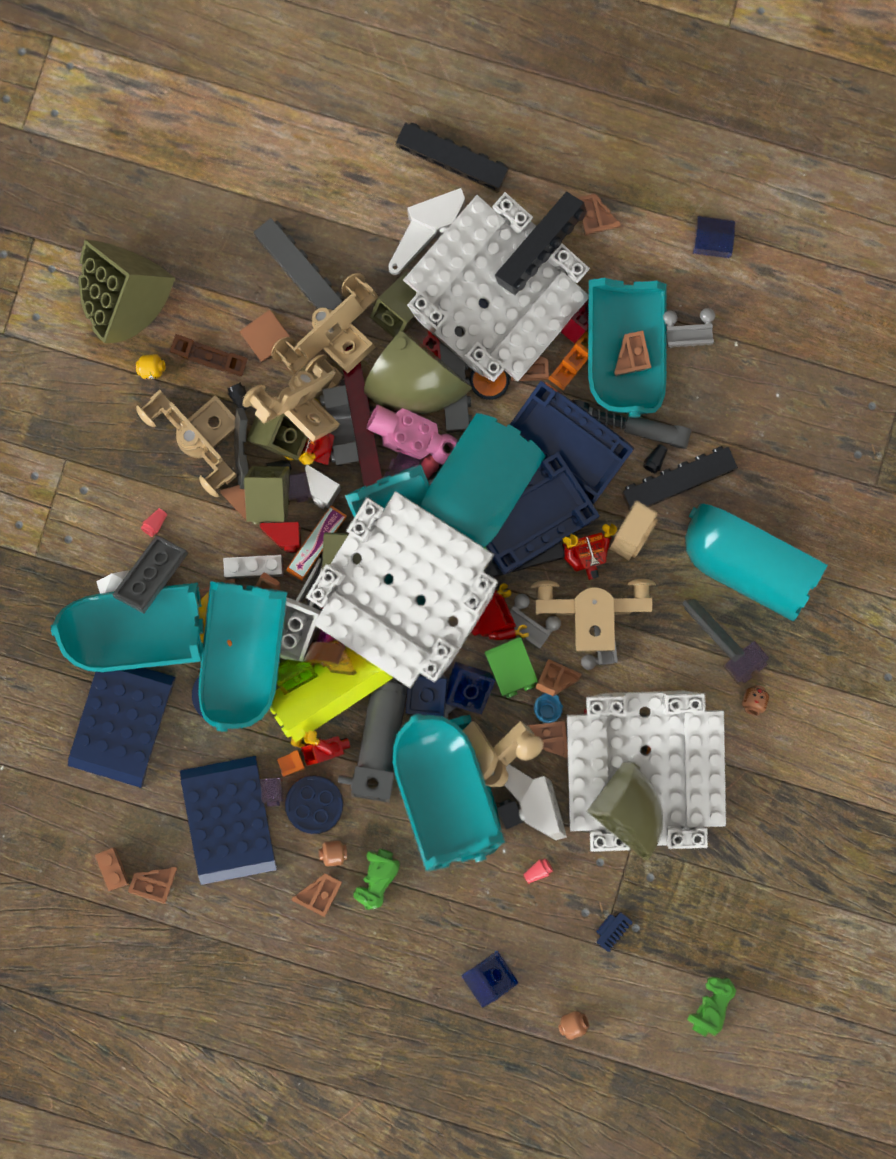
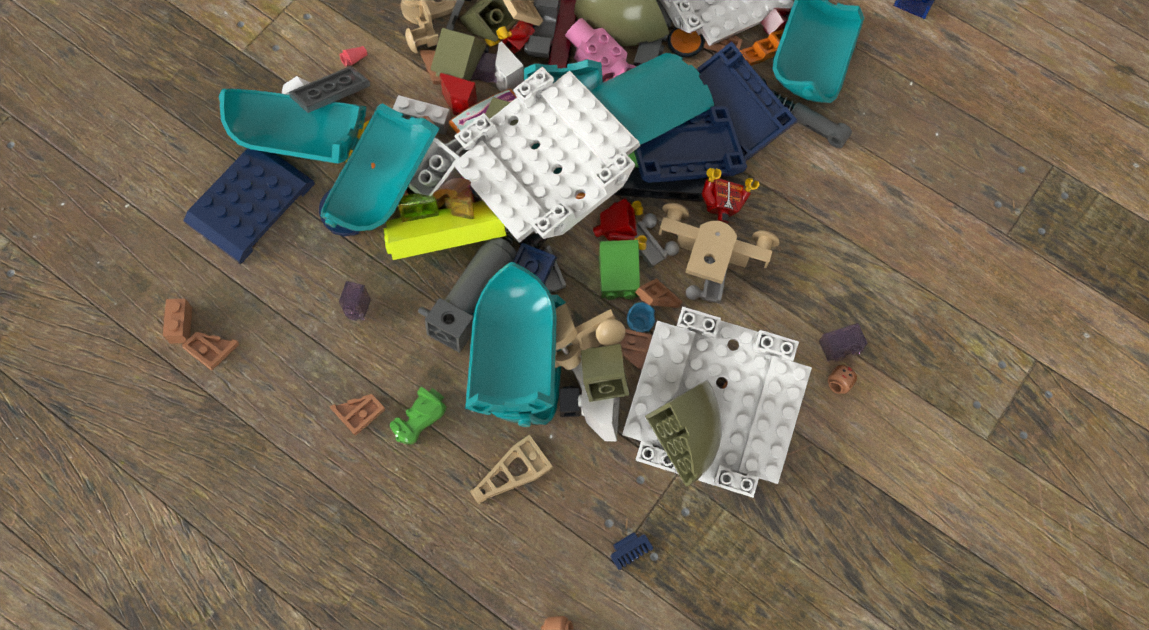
camera: 15 degrees right, 15 degrees down
(227, 820) = (301, 318): dark blue slope -> none
(291, 763) = (384, 288): orange panel -> none
(314, 804) = (389, 331): dark blue tile -> none
(321, 750) = (413, 278): red torso -> none
(333, 853) = (387, 379): nougat head -> none
(469, 688) = (573, 274): clear blue slope -> none
(490, 979) = (490, 552): clear blue slope -> none
(495, 879) = (532, 458): none -> tan plate
(536, 785) = (604, 372): none -> olive slope
(538, 871) = (577, 465): coral cone -> none
(633, 354) = (818, 59): nougat wing -> none
(634, 531) = (776, 177): tan brick -> none
(655, 459) = (809, 147): black cone -> none
(681, 479) = (828, 169): black brick -> none
(690, 334) = (873, 60): light grey gear -> none
(713, 629) = (820, 302): dark grey slope -> none
(751, 560) = (879, 251): teal panel -> none

